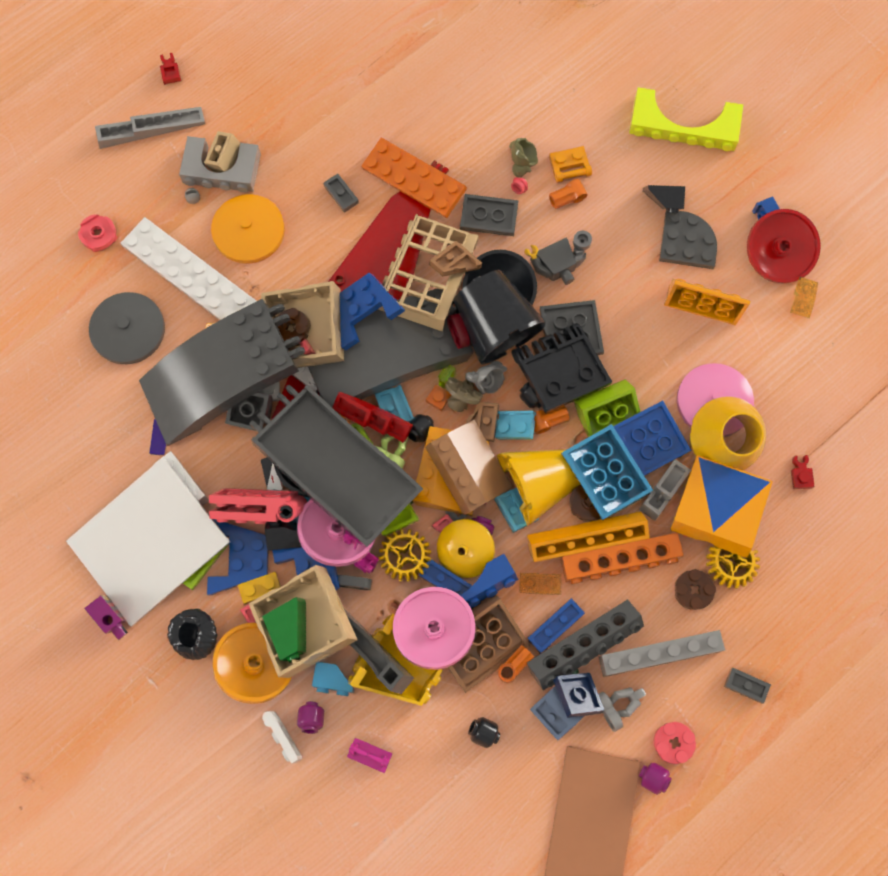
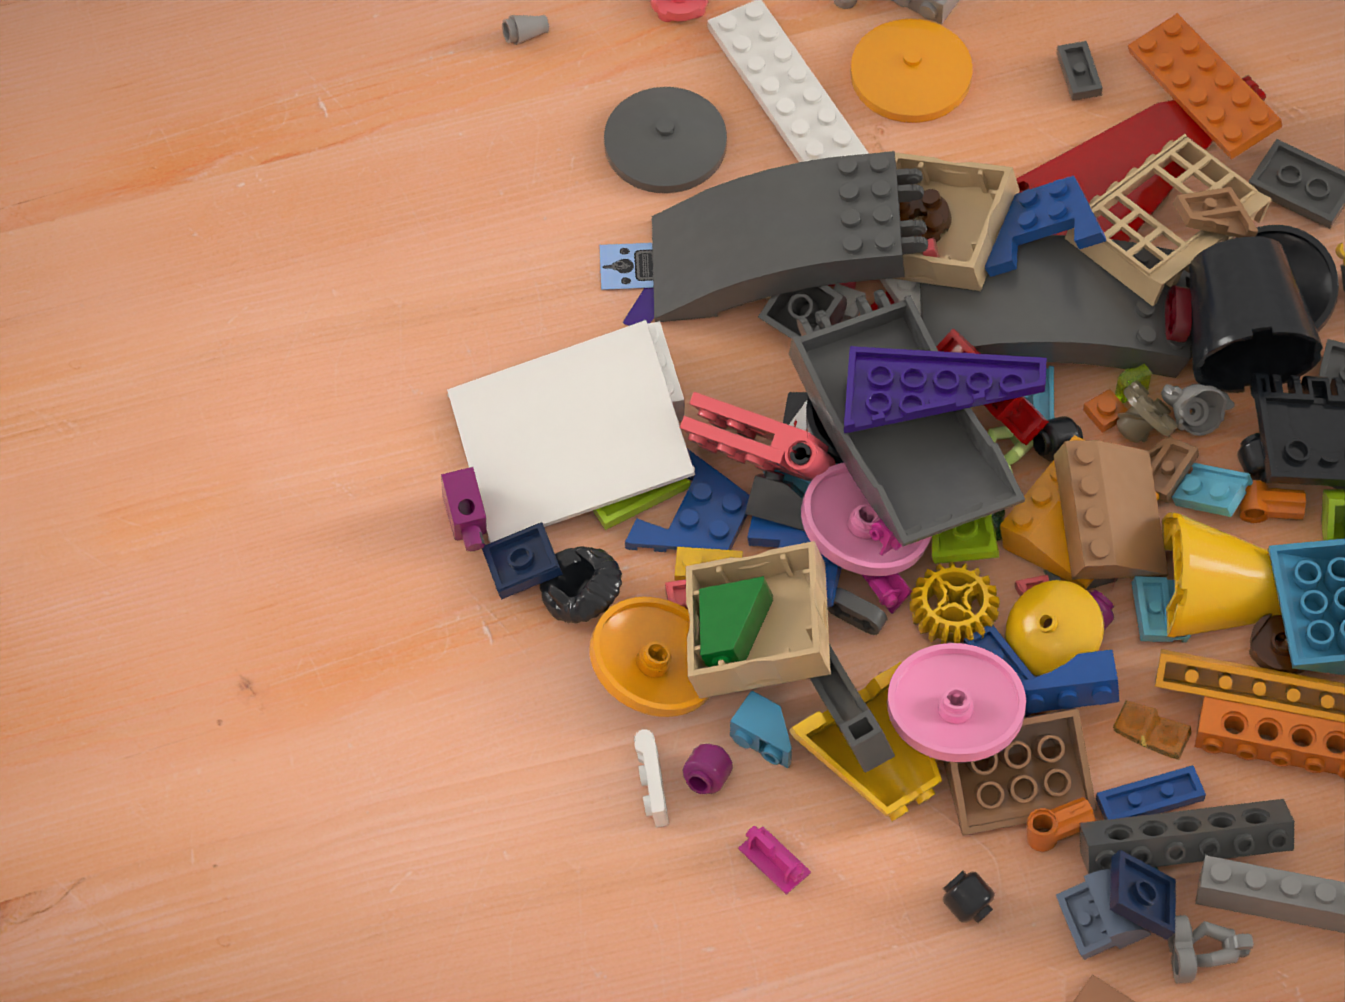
camera: 25 degrees right, 15 degrees down
(16, 289) = (523, 27): none -> light grey cone
(137, 417) = (626, 266): none -> sticker
(153, 633) = (521, 560): none -> dark blue plate
(331, 440) = (913, 384): none -> dark purple wing

